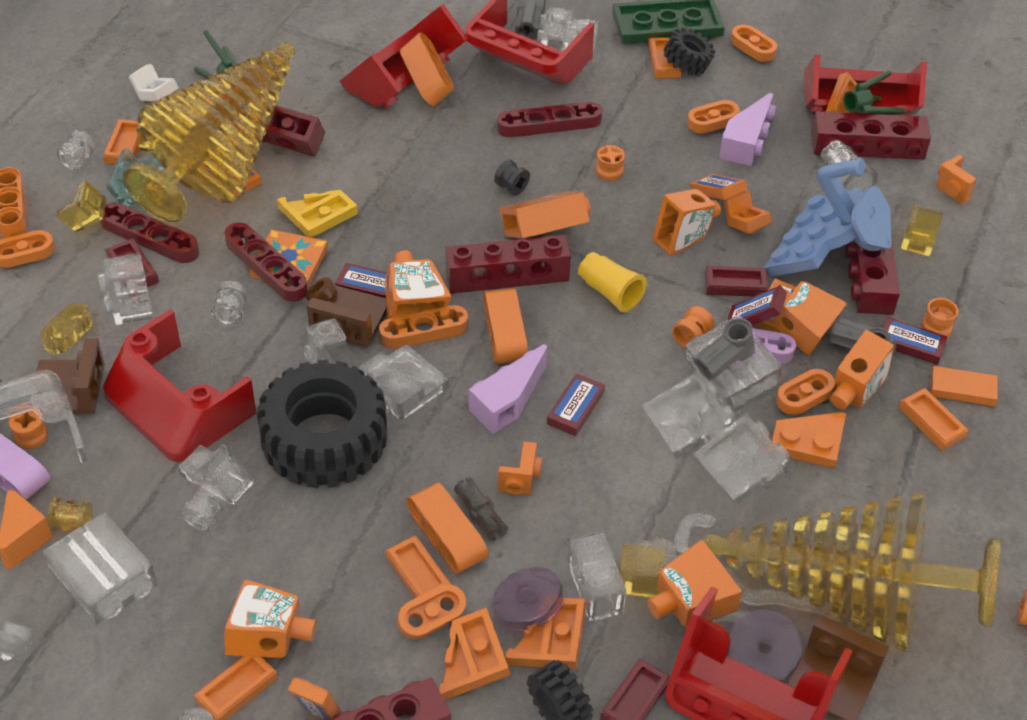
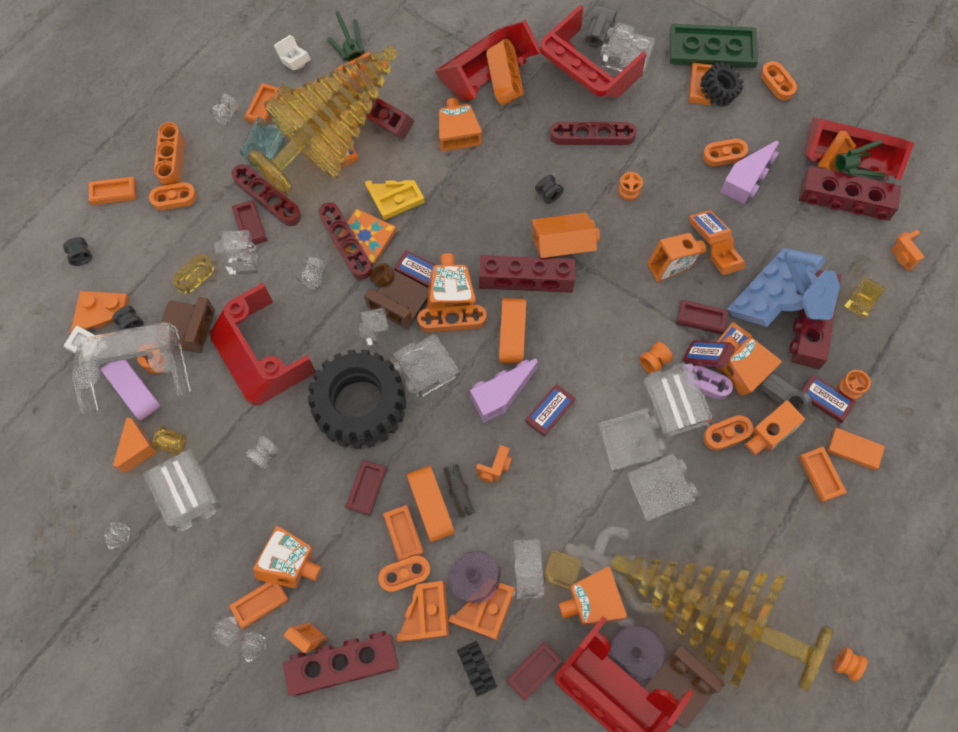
camera: 15 degrees right, 20 degrees up
(85, 209) = (222, 167): clear yellow panel -> none
(219, 469) = (277, 422): clear slope -> none
(355, 528) = (366, 487): none -> dark red tile
(383, 131) = (458, 126): none -> orange torso
(613, 281) = (604, 304): yellow plant -> none
(726, 348) = (669, 398): dark grey piece -> none
(811, 438) = (721, 474): orange wing -> none
(838, 152) = (820, 226): clear plant -> none

